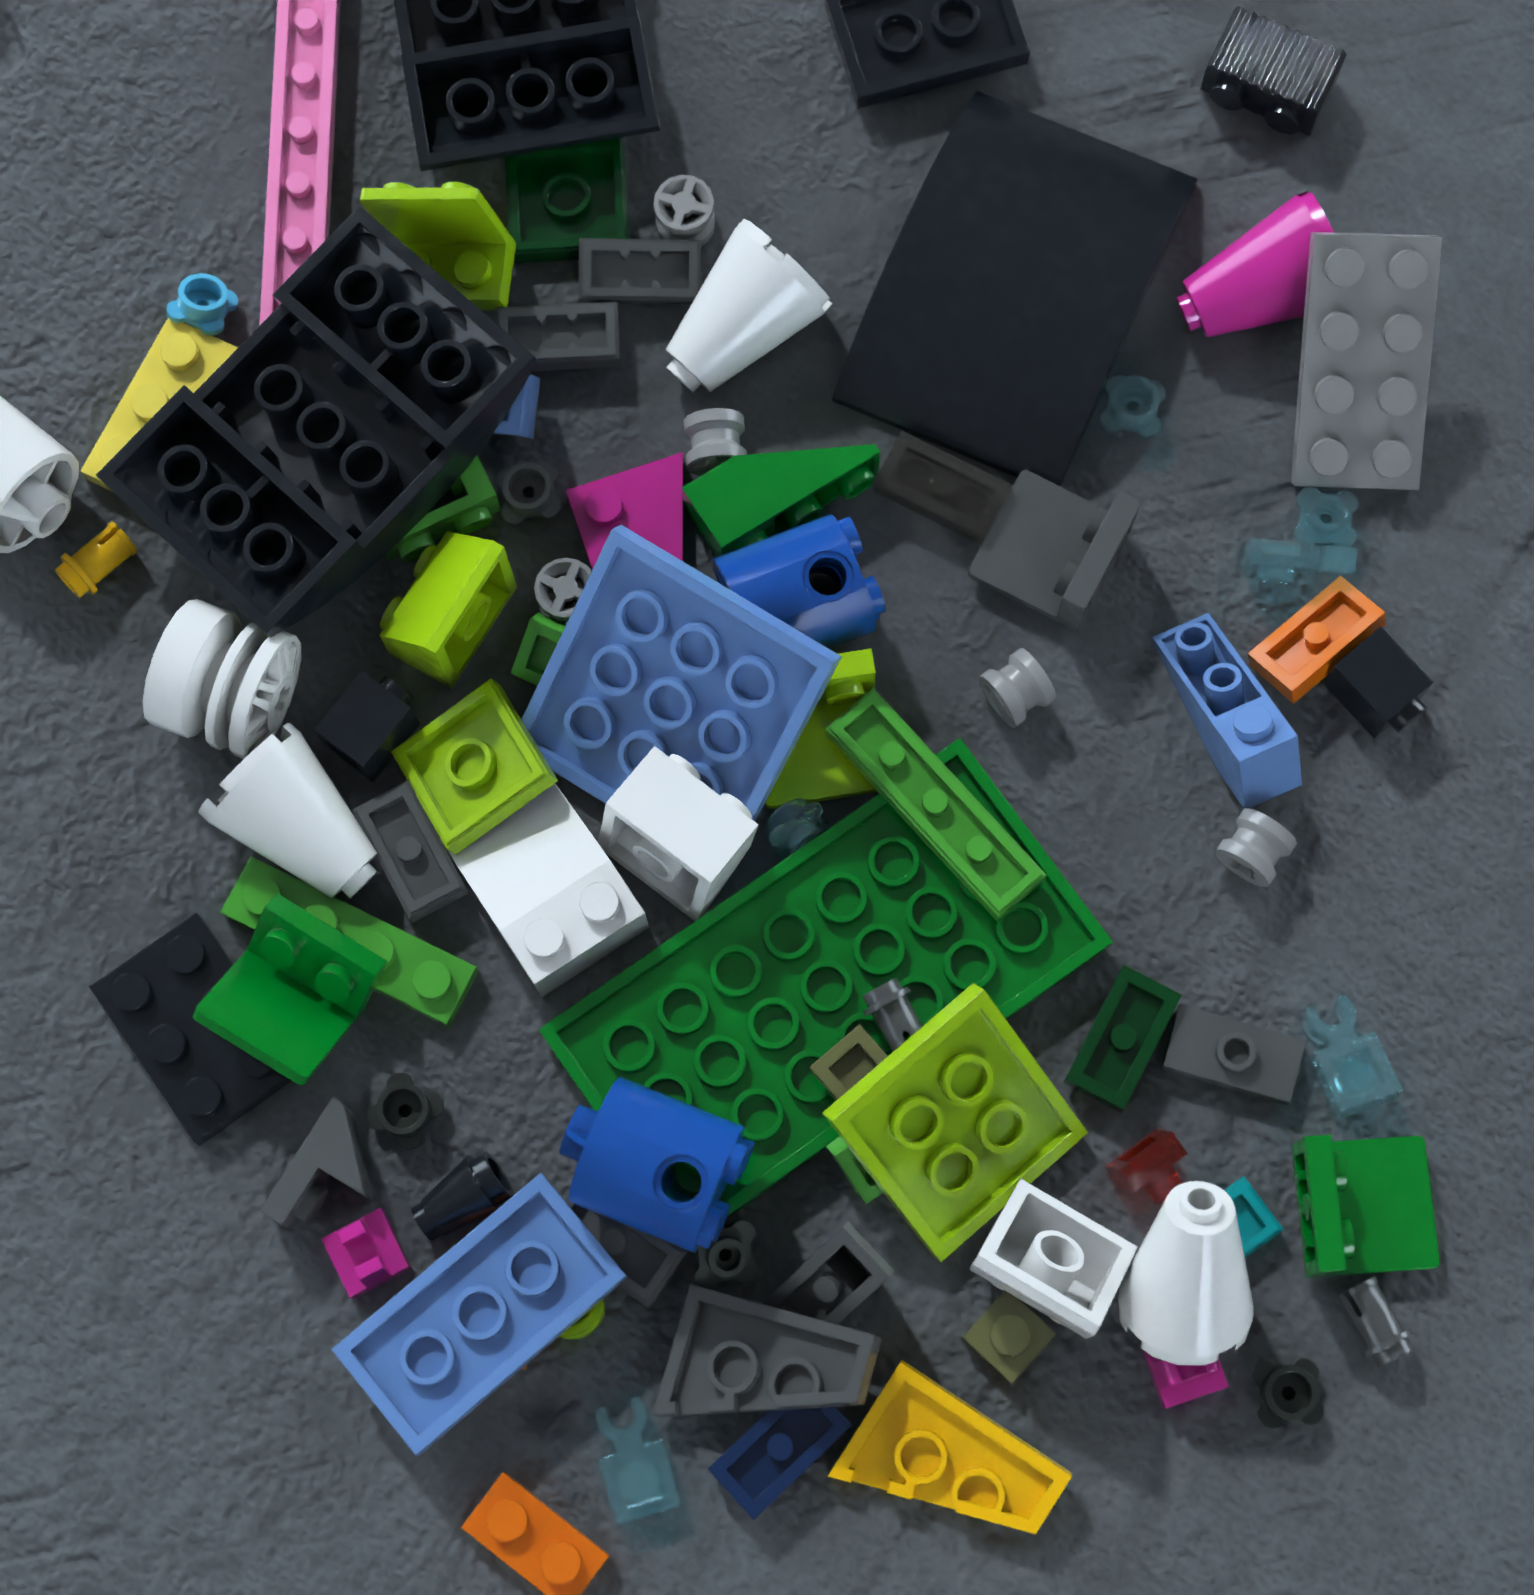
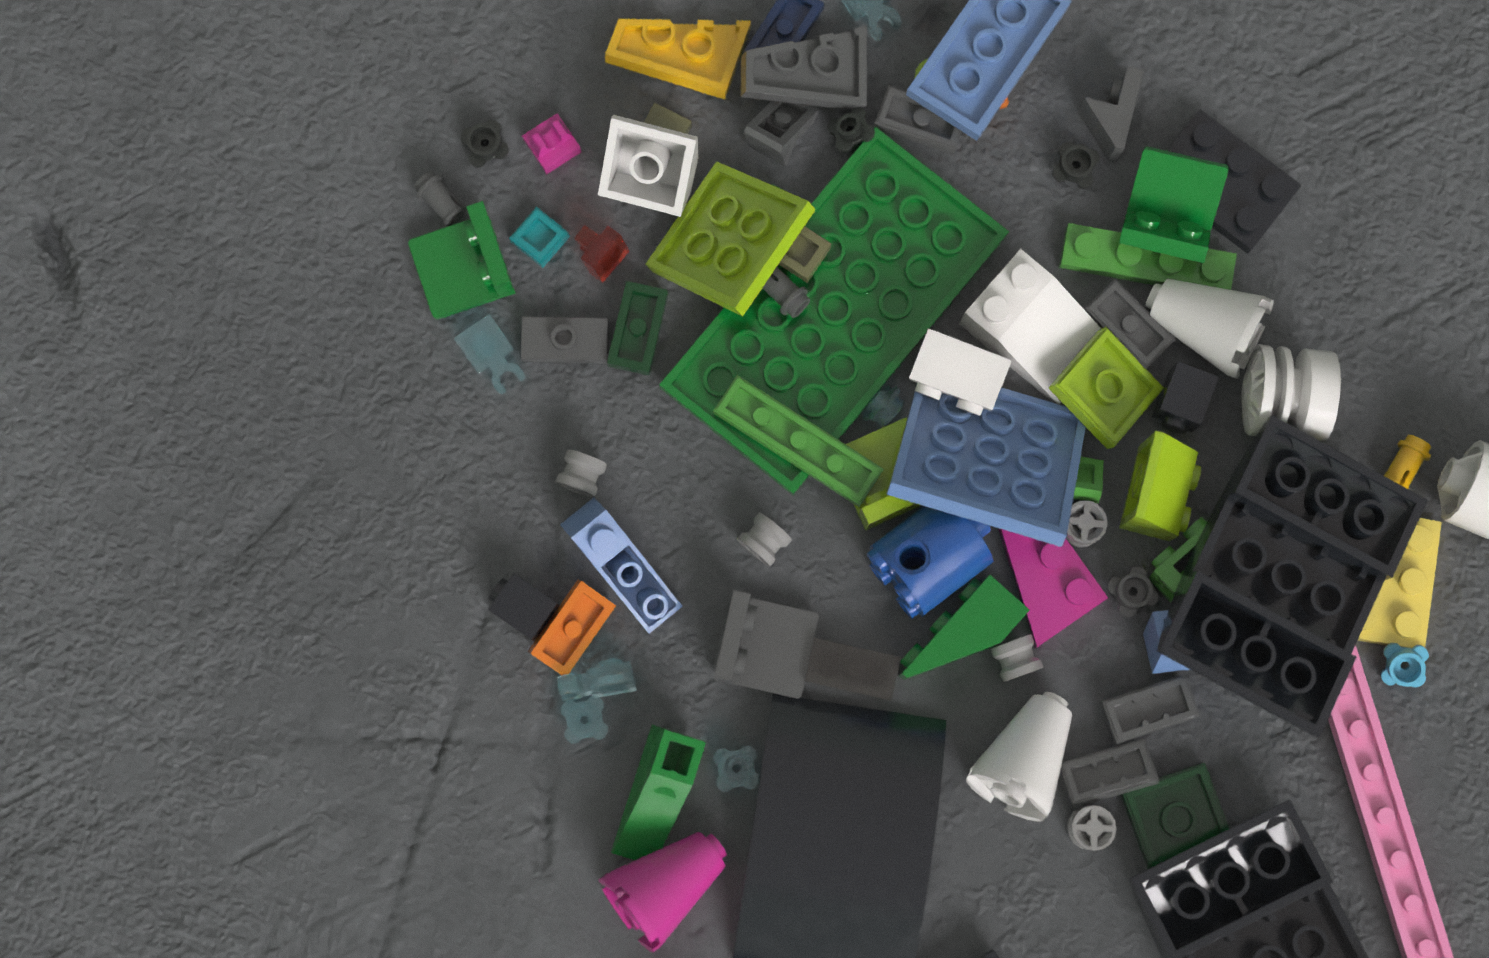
camera: 160 degrees right, 5 degrees up
(366, 1253) = (1070, 75): dark pink tile -> none
(452, 233) = (1247, 743): lime bracket -> none
(463, 1196) = (1021, 122): black cone -> none
(631, 1159) = (909, 152): blue cylinder -> none
(1189, 1279) = (560, 173): white cone -> none
(1240, 403) = (657, 791): none -> green slope
(1365, 360) = (583, 831): light grey plate -> none

